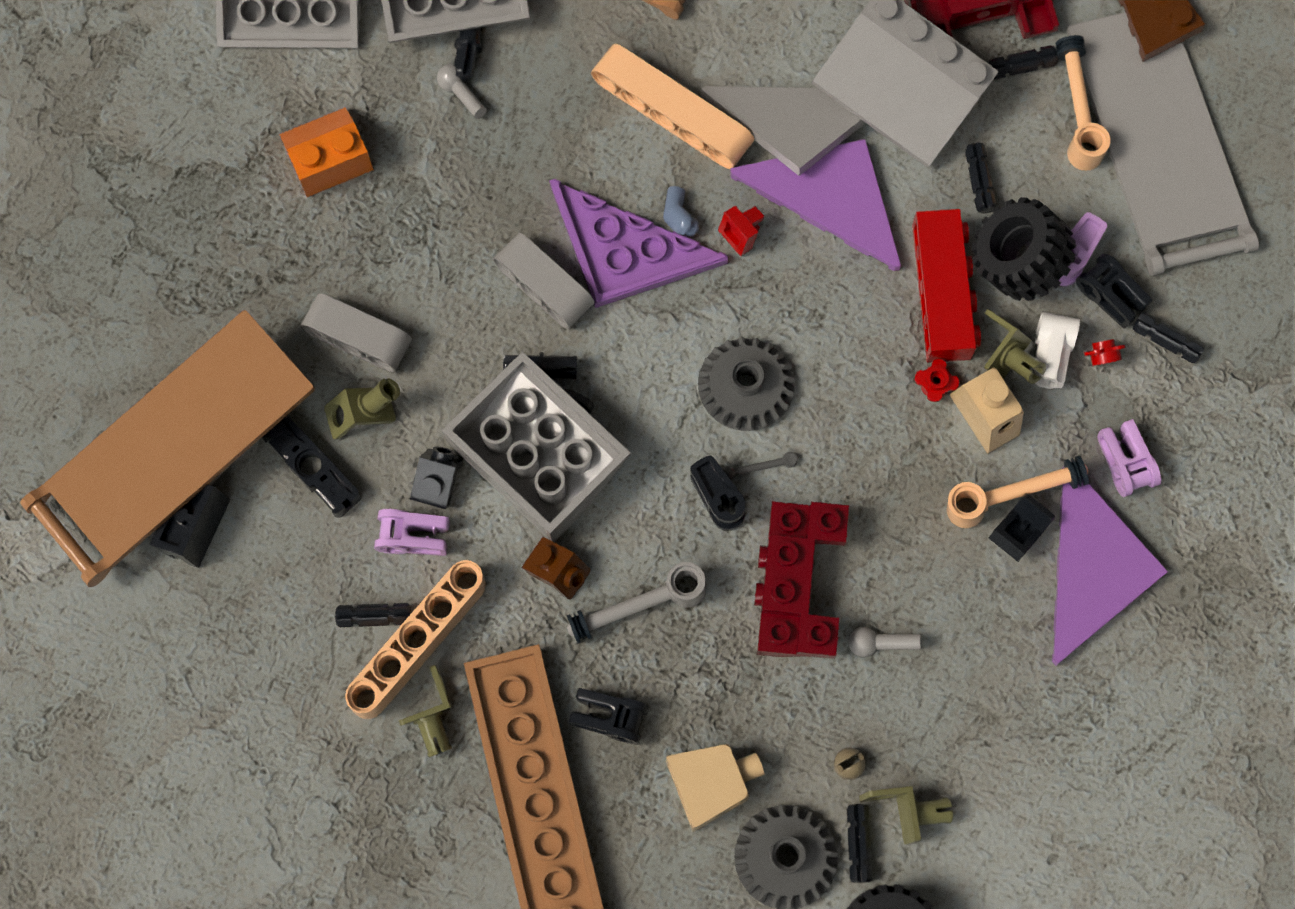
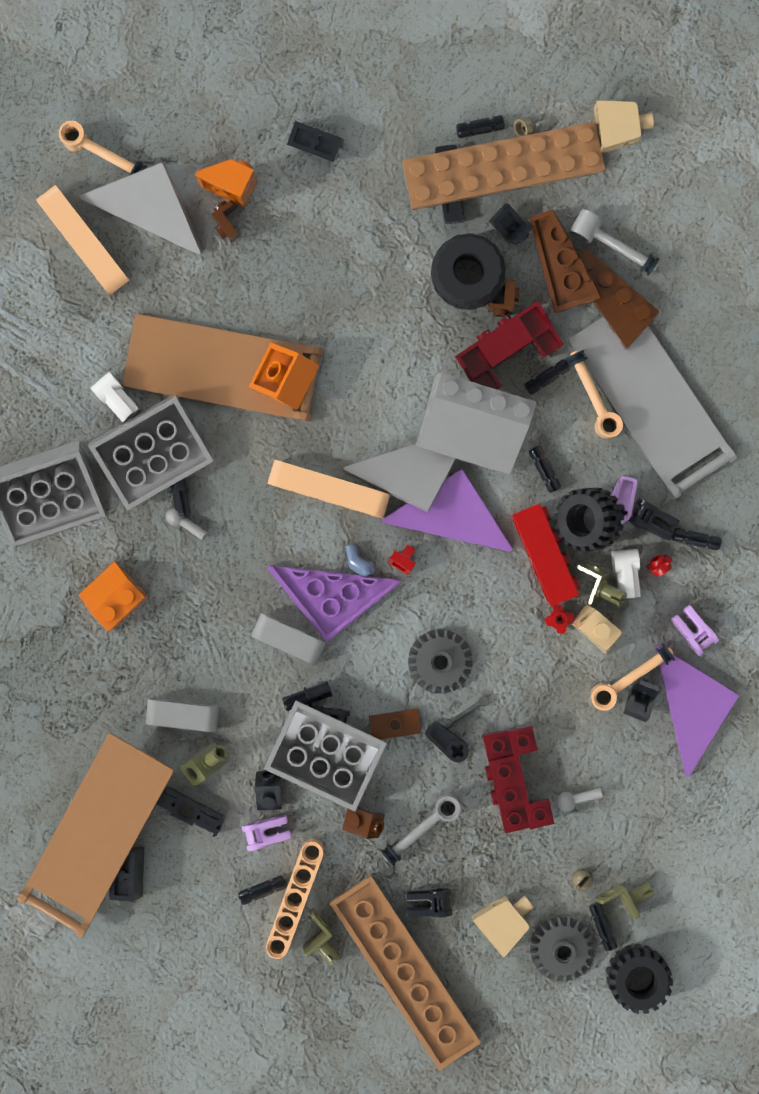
camera: 20 degrees left, 15 degrees up
(654, 447) = (395, 724): none -> reddish brown plate

